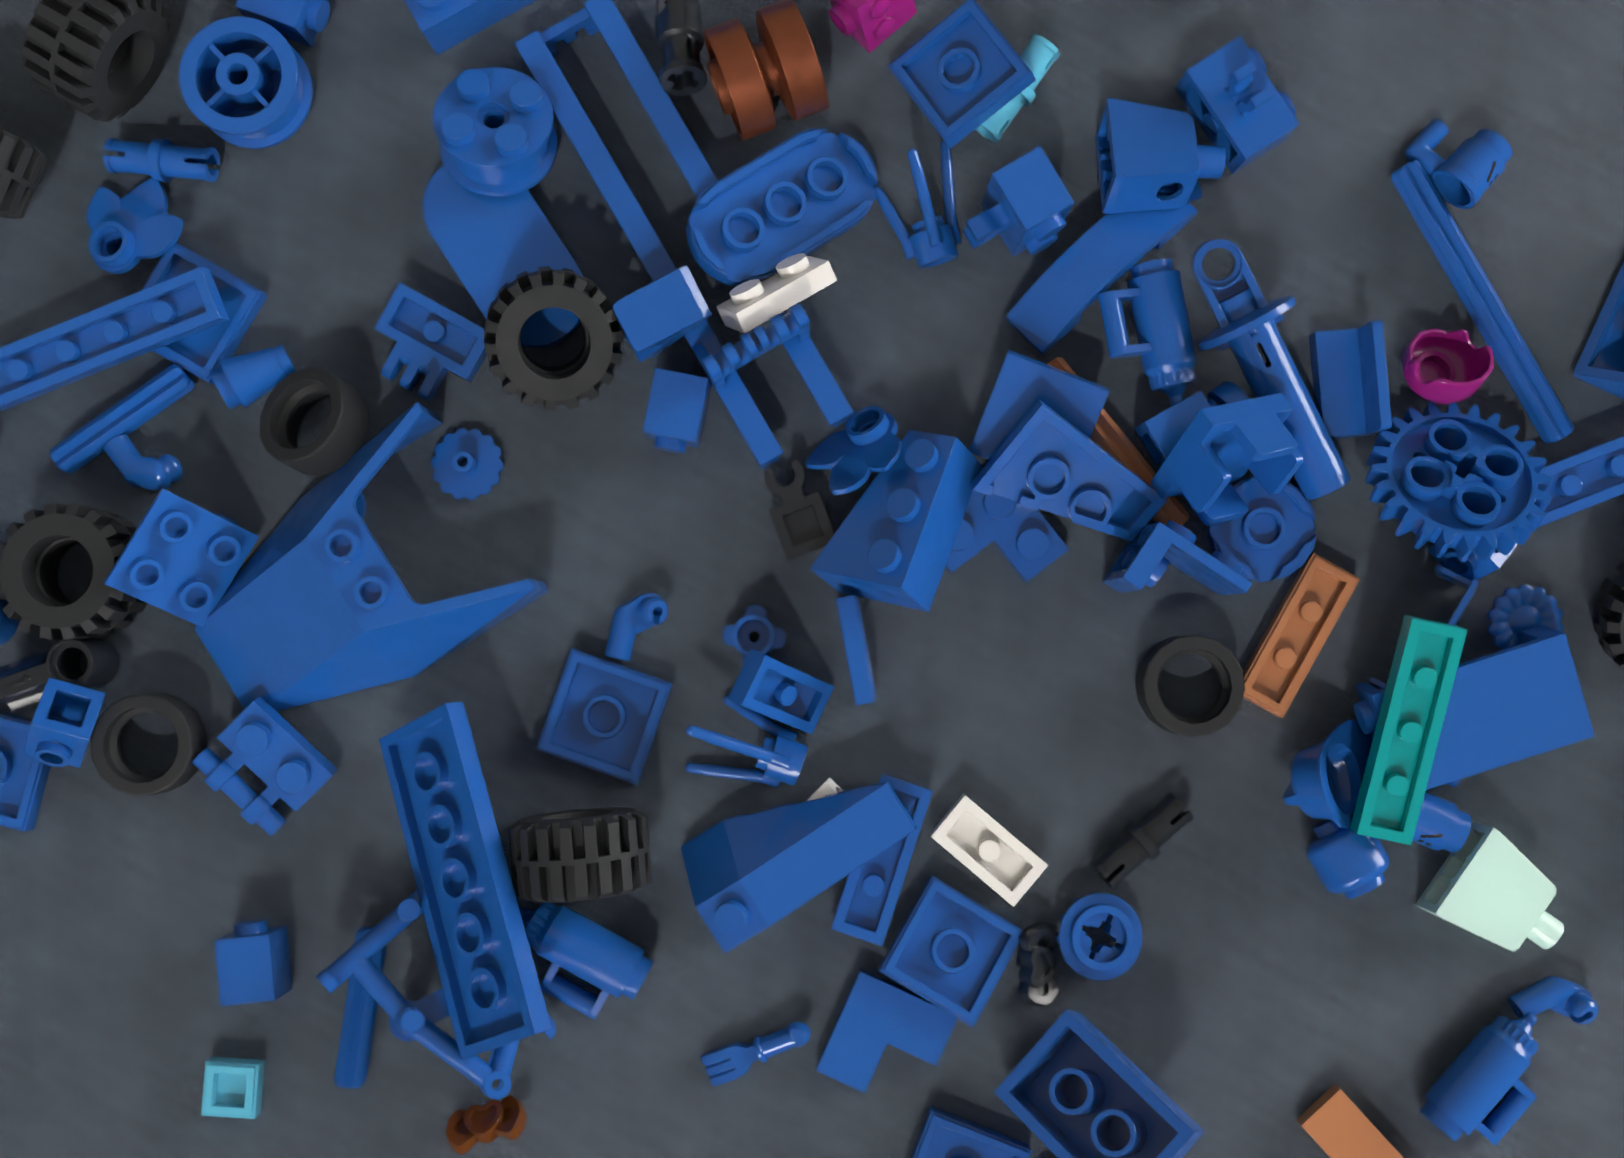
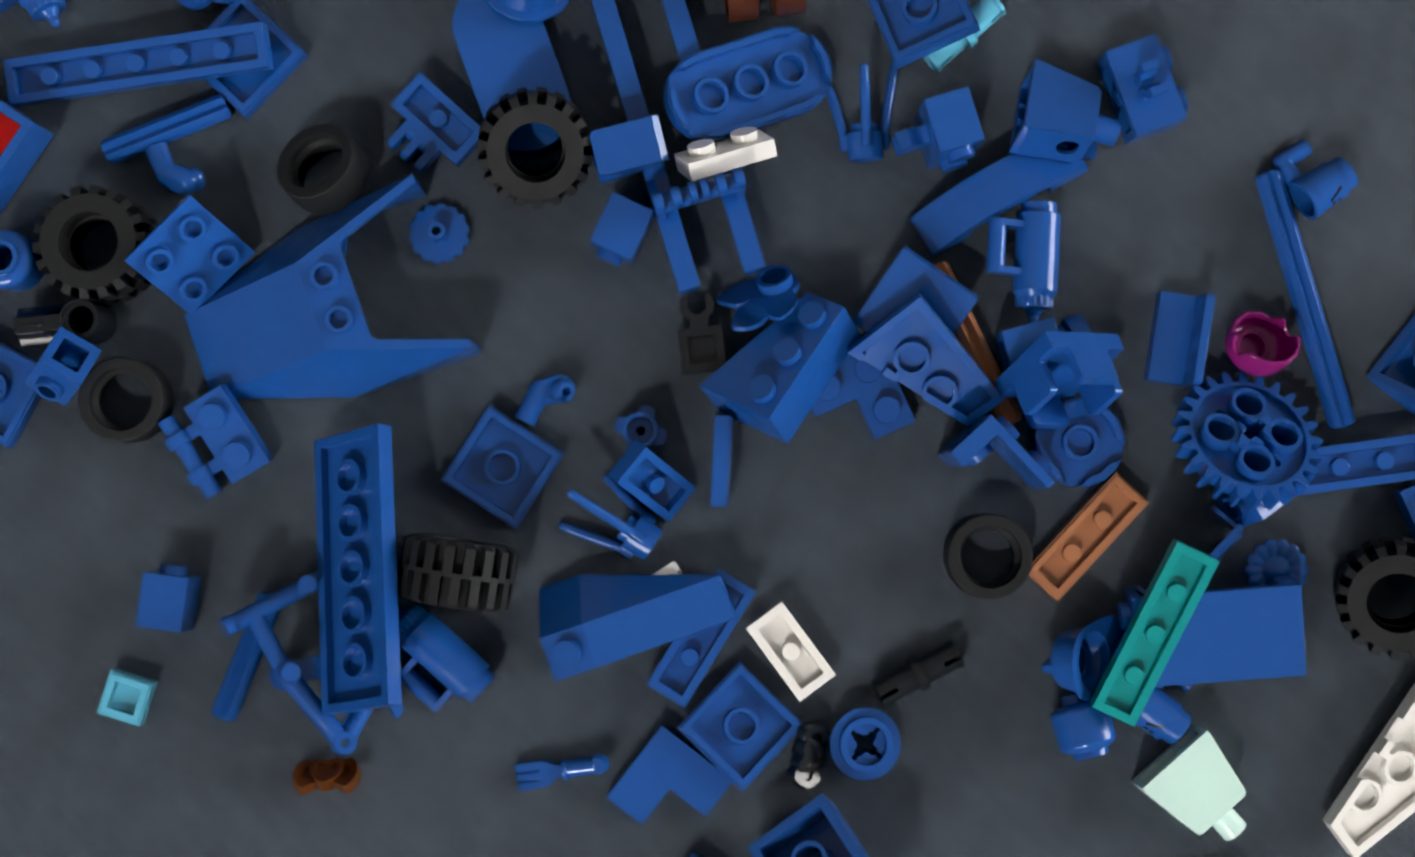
camera: 10 degrees right, 0 degrees up
(251, 375) = (280, 118): blue cone -> none
(1243, 322) = (1107, 269): blue piece -> none

